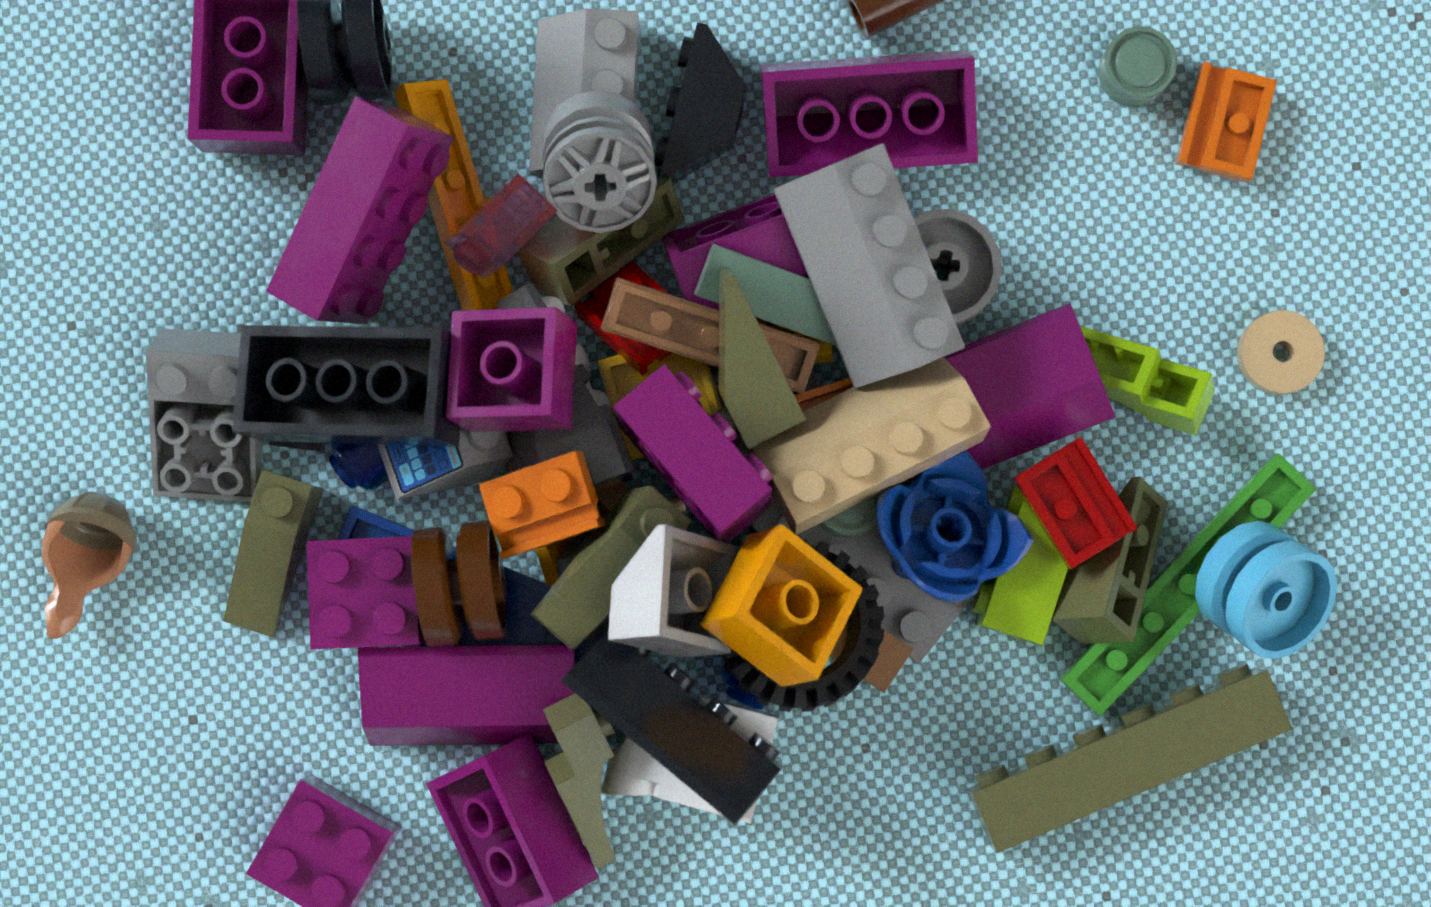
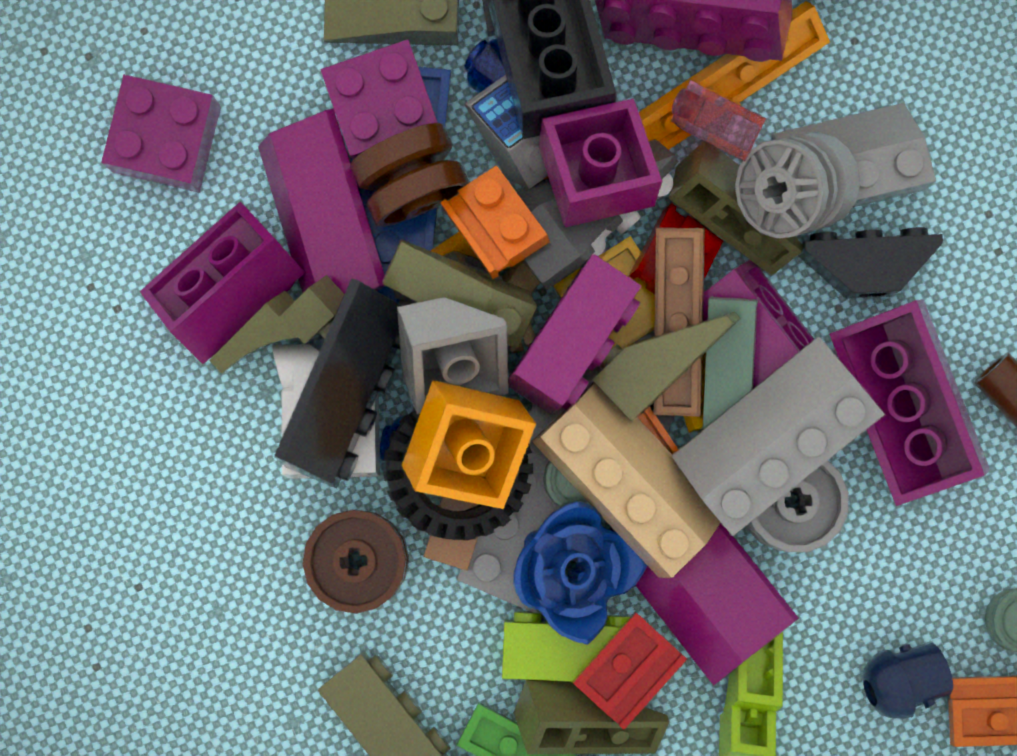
camera: 70 degrees right, 0 degrees up
(886, 794) = (329, 566): none -> reddish brown wheel
(1167, 207) = (906, 679): none -> dark blue piece

